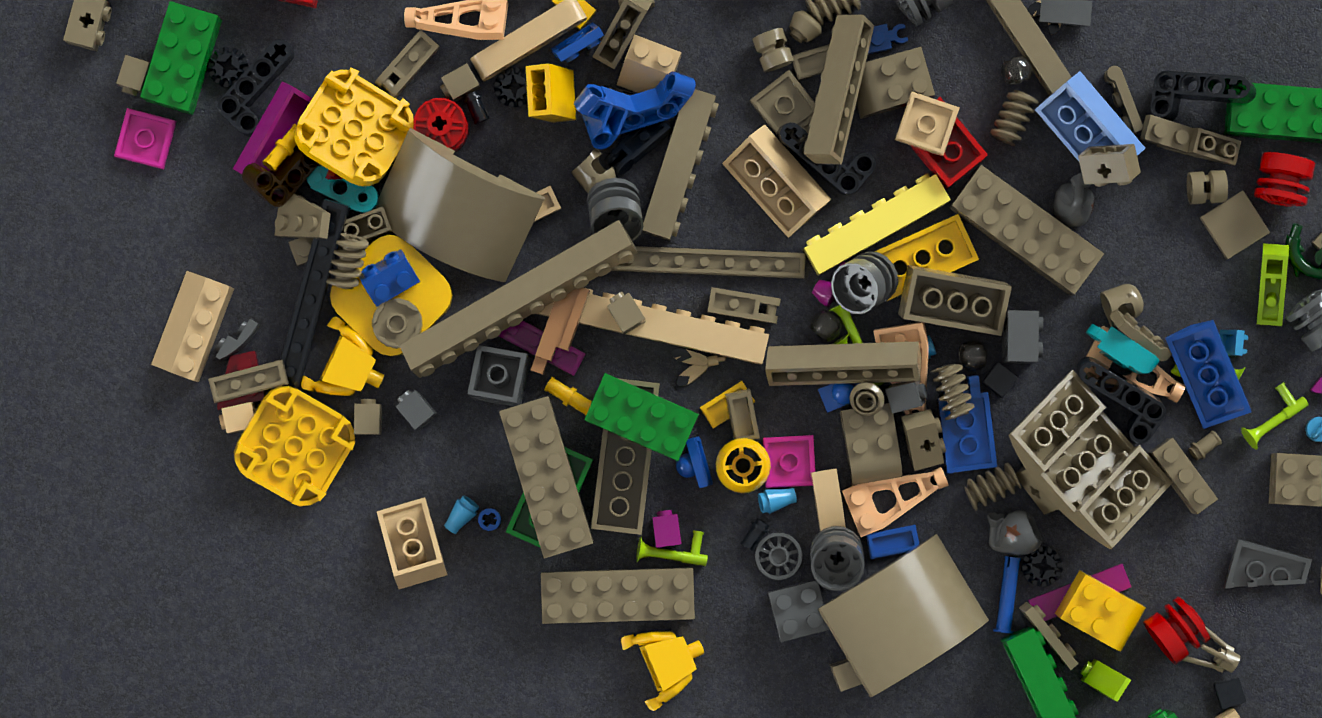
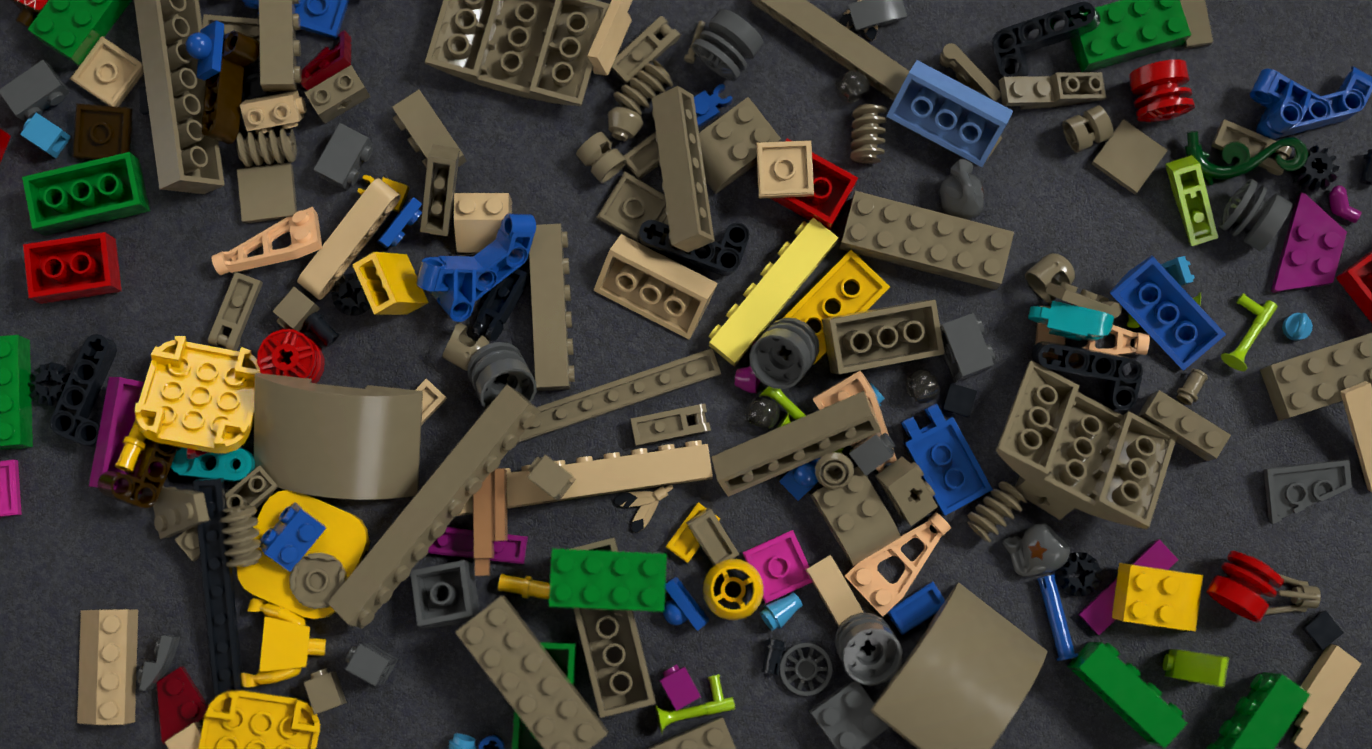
camera: 25 degrees left, 5 degrees down
(248, 381) = (184, 702): dark tan tile -> none
(953, 390) = (918, 428): dark tan piece -> none
(1050, 634) = (1139, 654): dark tan plate -> none
(1109, 164) = (985, 138): dark tan brick -> none

